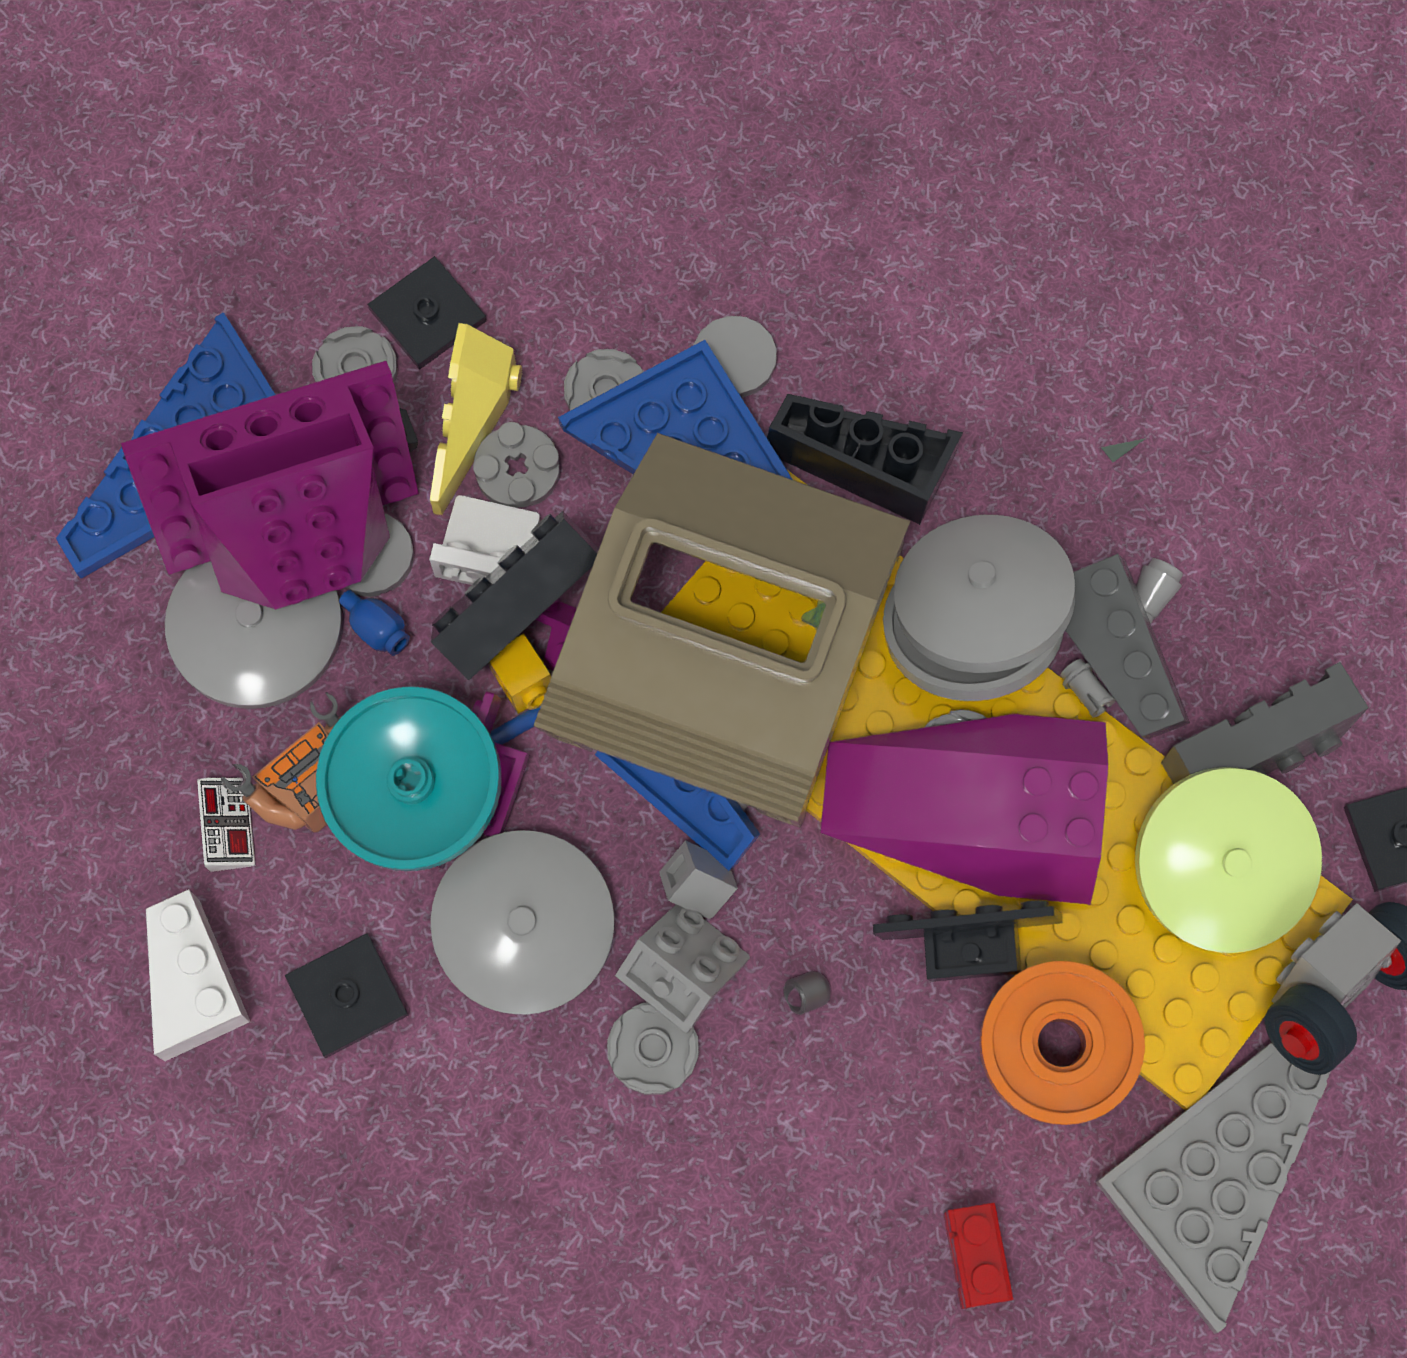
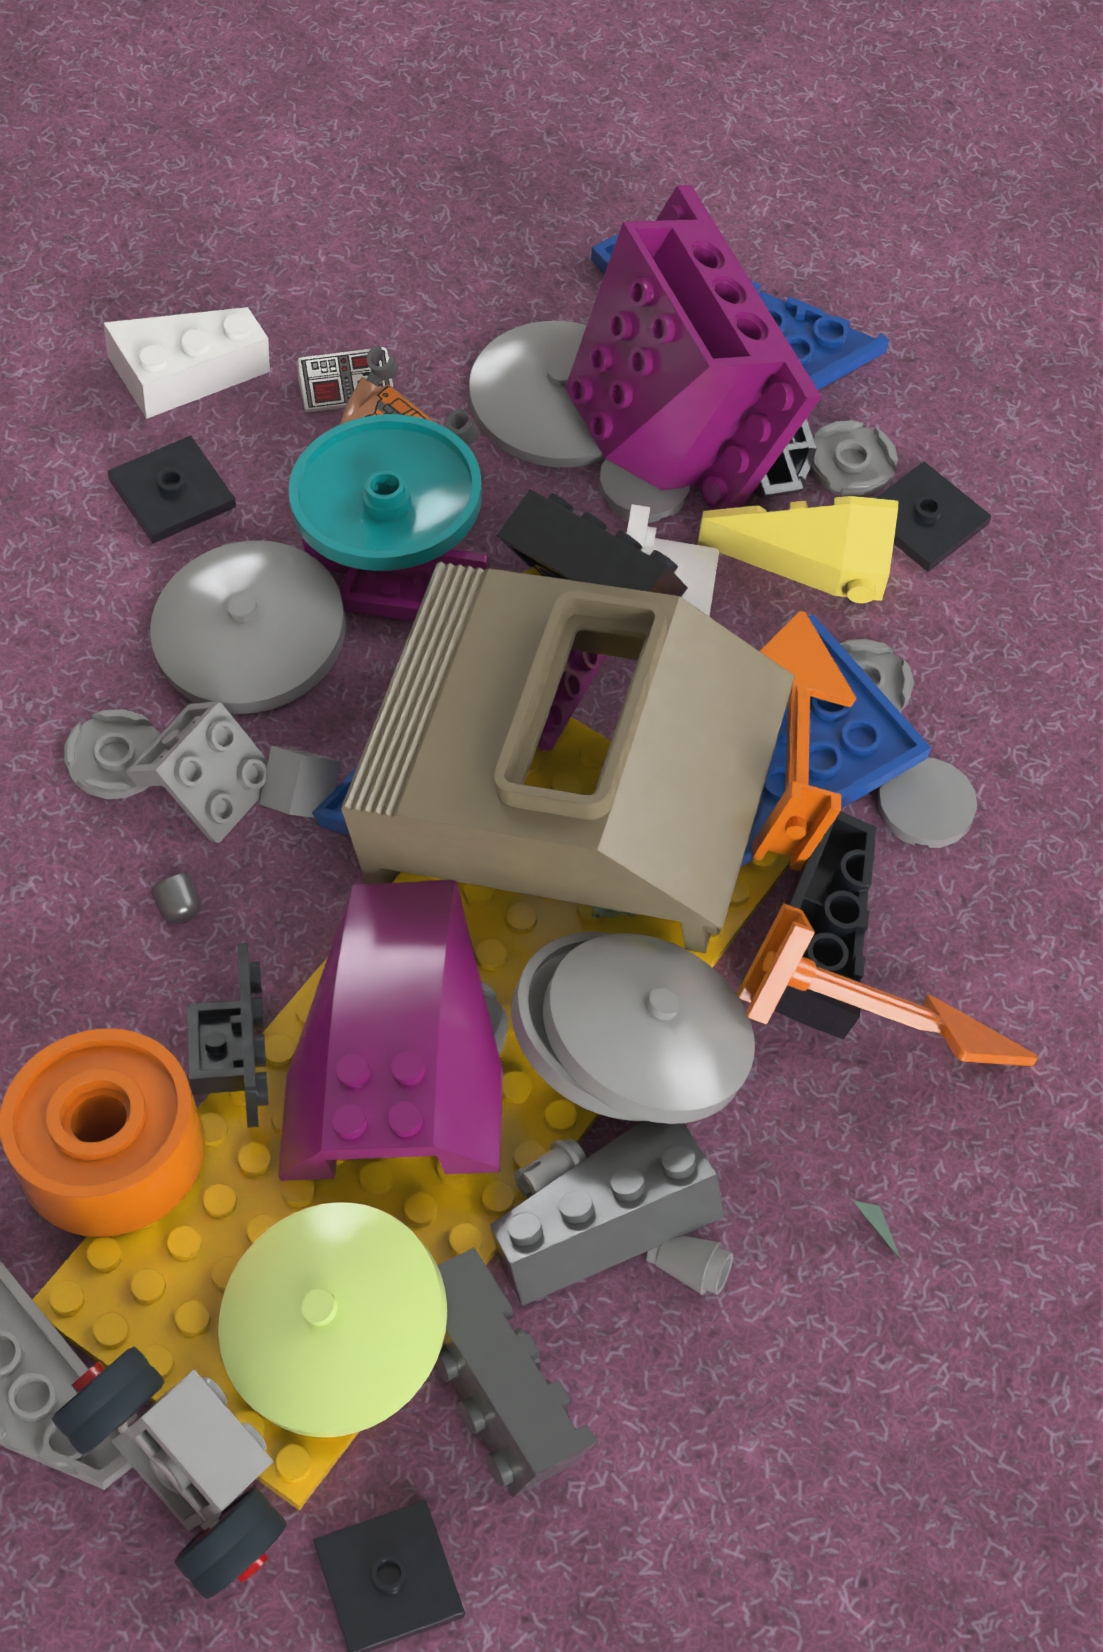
camera: 80 degrees right, 15 degrees down
(375, 623) = (570, 480): blue plant -> none
(516, 442) = (756, 579): light grey plate -> none
(627, 429) = (803, 810): none -> orange piece
(932, 469) = (782, 965): none -> orange piece

